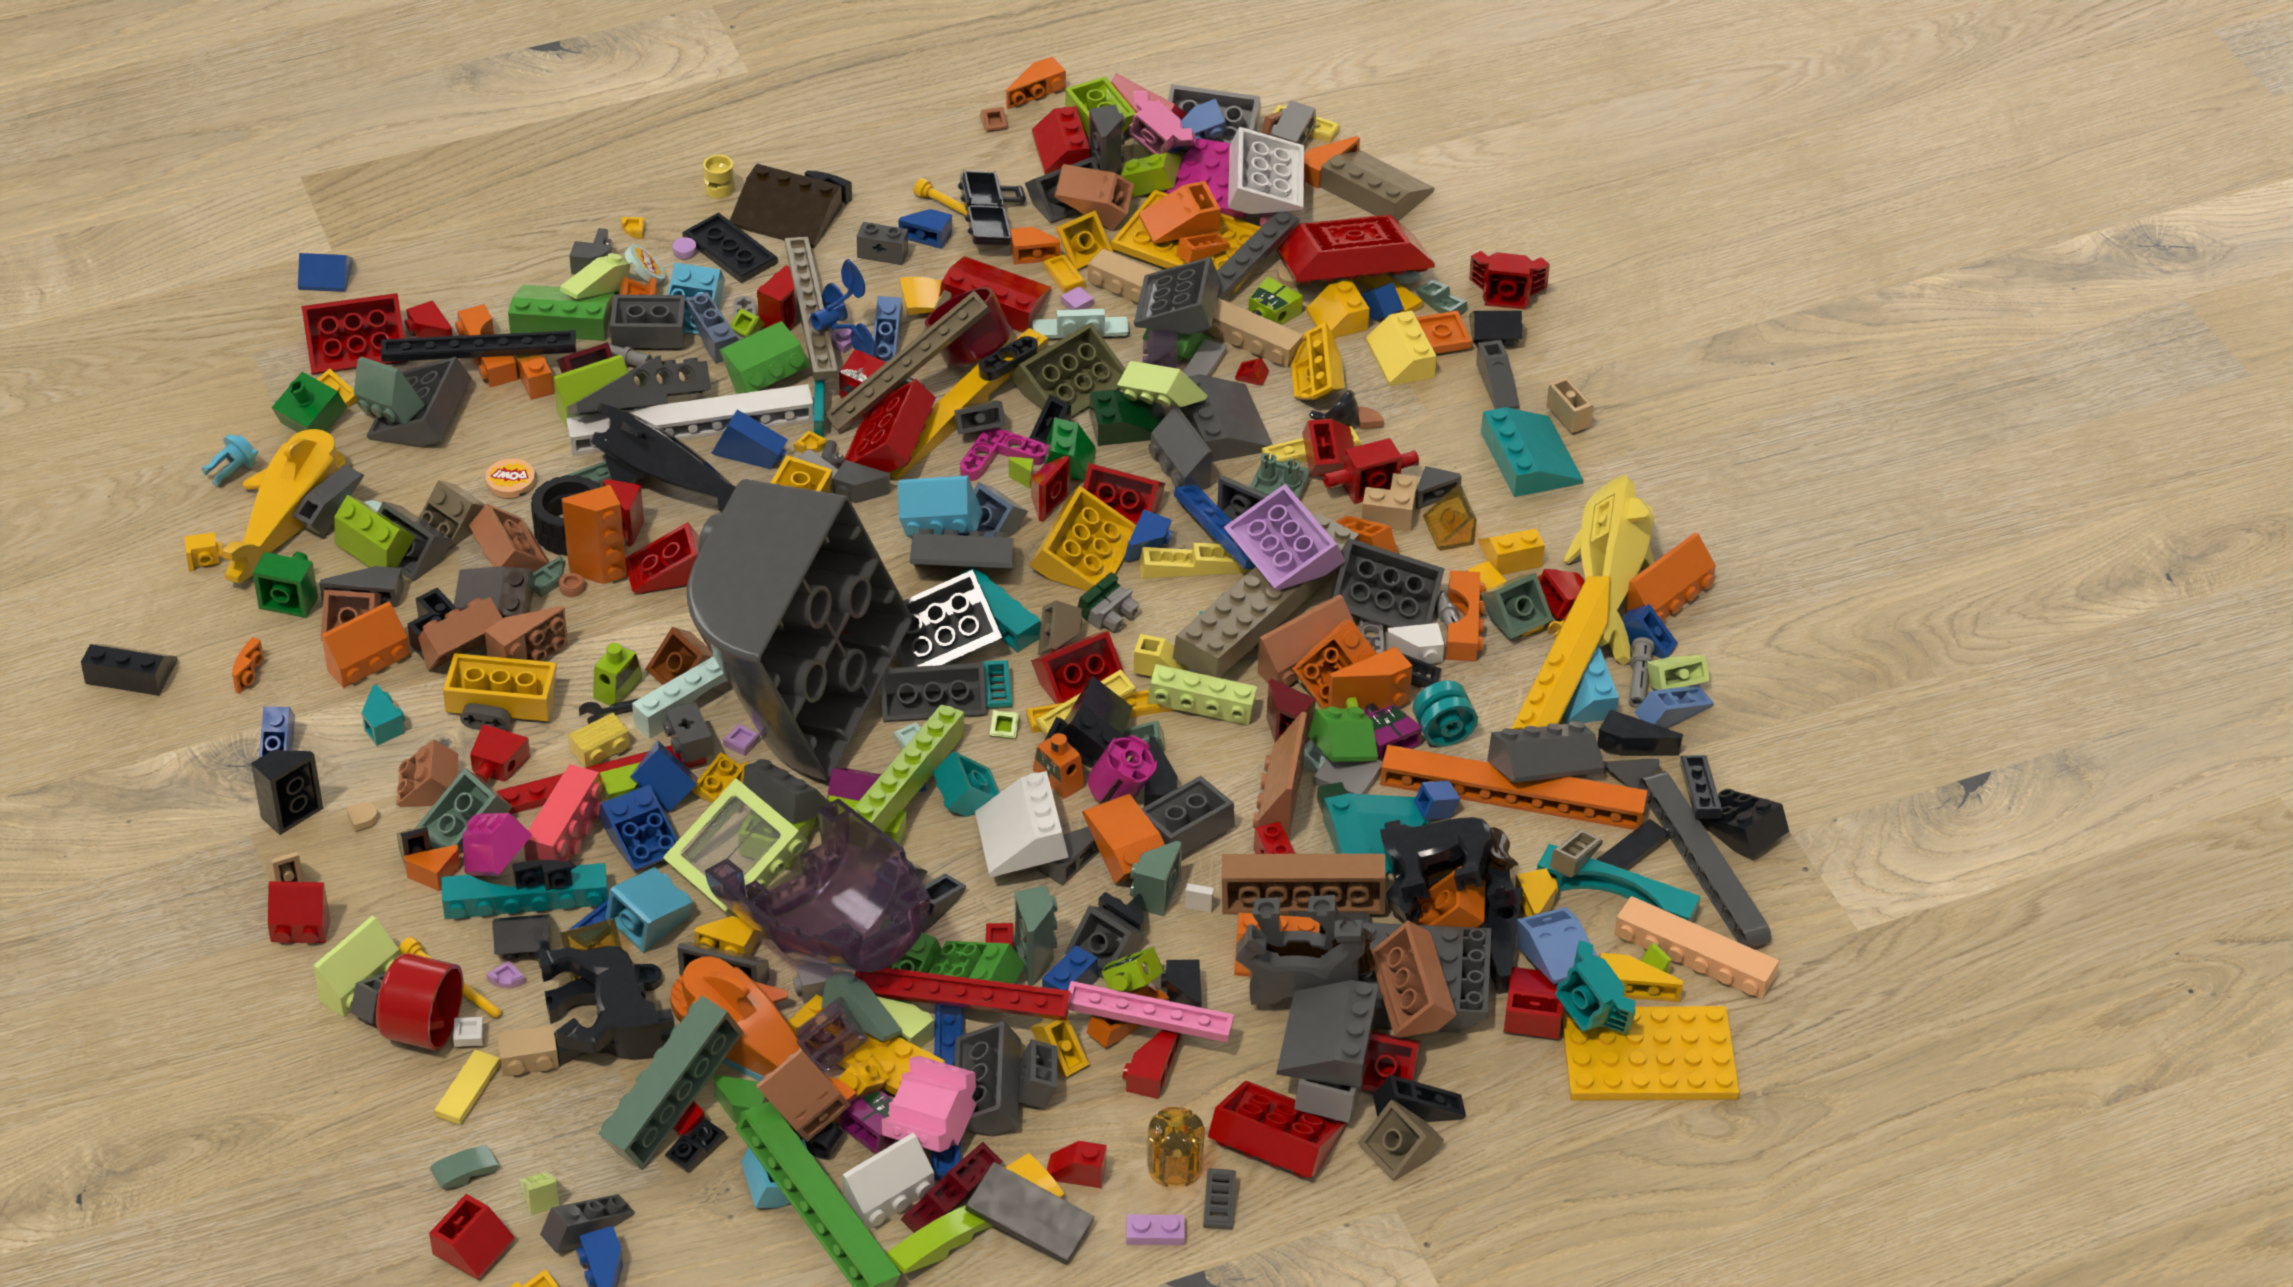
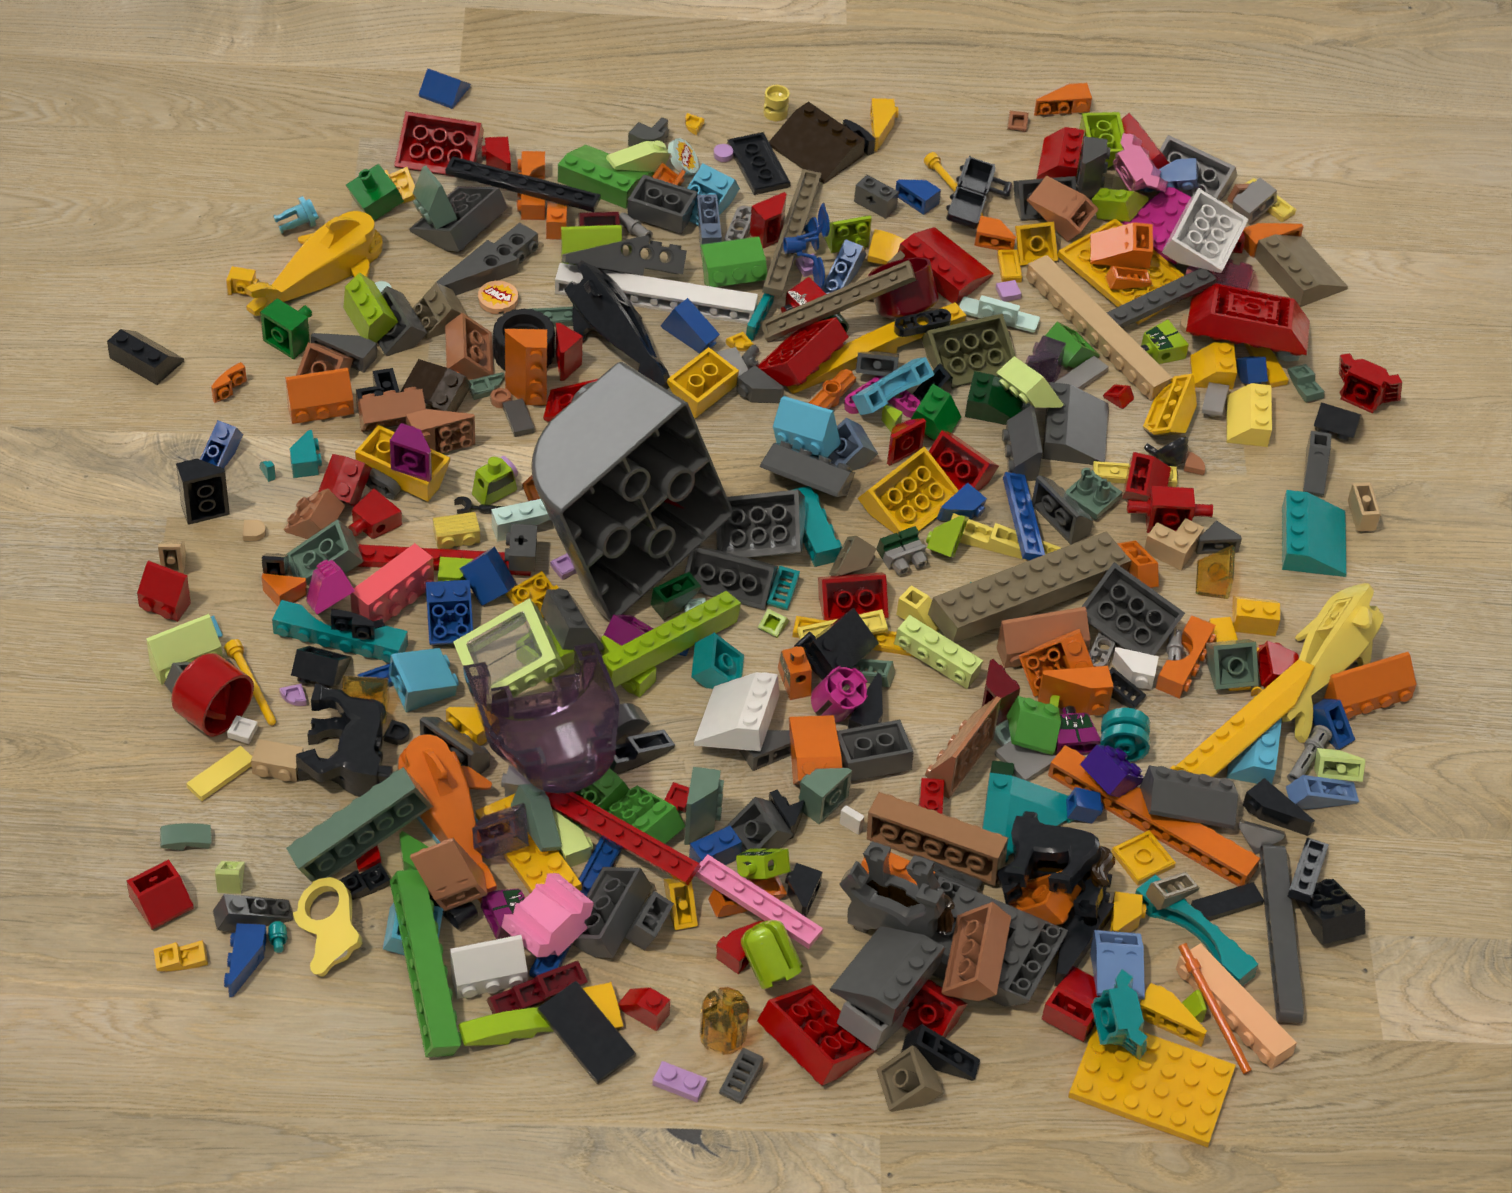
camera: 20 degrees right, 5 degrees up
(322, 503) = (341, 272): dark grey slope -> none
(344, 745) = (268, 470): none -> teal tile
(445, 721) = (345, 478): none -> red slope
(485, 439) = (492, 260): none -> dark grey brick
(517, 668) = (410, 453): none -> magenta slope
(603, 599) = (518, 417): none -> dark grey tile
(628, 1235) = (277, 935): none -> teal cylinder
(697, 1208) = (335, 934): none -> light yellow animal
(746, 323) = (736, 229): lime slope -> none
(843, 157) = (882, 119): none -> yellow slope
(865, 1077) = (511, 875): yellow brick -> none
(877, 283) = (853, 229): none -> lime slope
(884, 728) = (674, 595): none -> dark green slope
(944, 456) = (834, 389): none -> orange piece
(998, 447) = (883, 390): none -> medium azure arch
(1149, 573) = (947, 536): none -> lime slope
(1179, 298) = (1082, 316): dark grey slope -> none
(1191, 1059) = (771, 953): none -> lime cylinder
(1285, 540) = (1060, 547): lavender slope -> none
(1315, 208) = (1236, 275): none -> clear pink slope
(1357, 344) = (1215, 399): none -> light grey slope
(1445, 331) = (1291, 411): orange plate -> none
(1453, 753) = (1112, 770): none -> dark purple slope
(1527, 832) = (1143, 857): none -> yellow tile
(1638, 921) = (1193, 967): none -> orange bar

